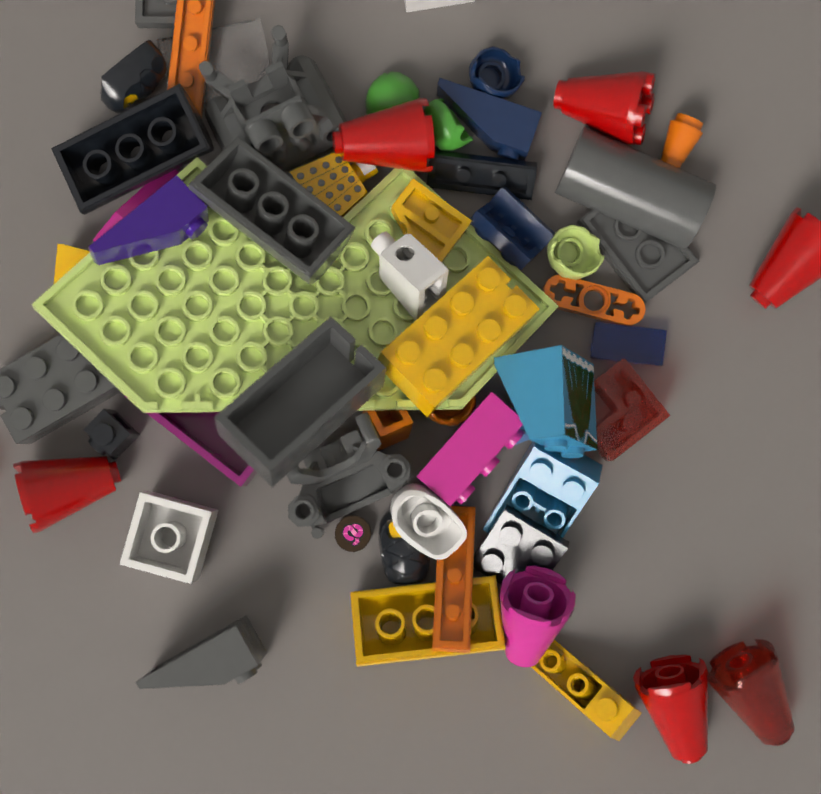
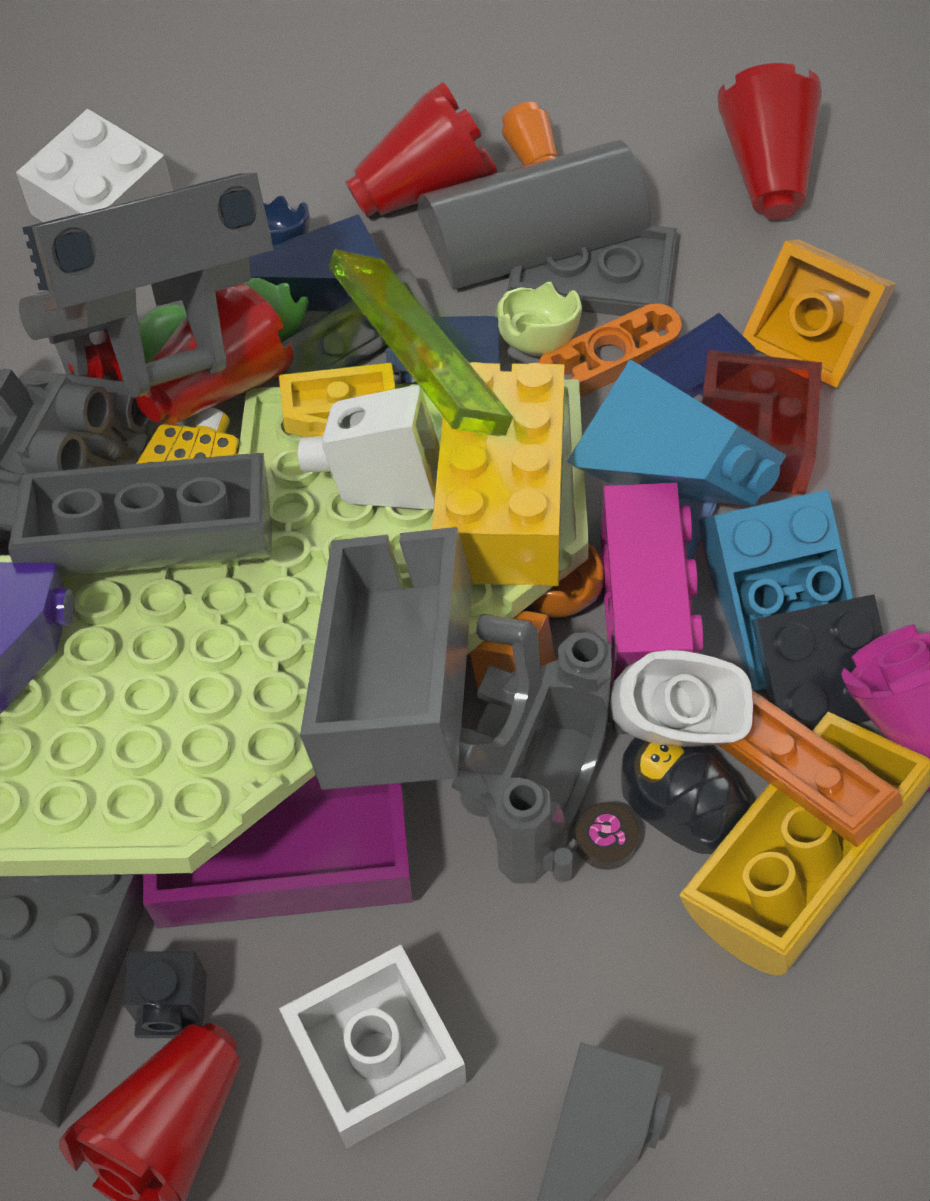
camera: 40 degrees left, 25 degrees down
(351, 74) = (177, 242): none -> dark grey container
(478, 235) = (421, 345): none -> clear neon green tile
(714, 375) = (817, 309): none -> light orange slope

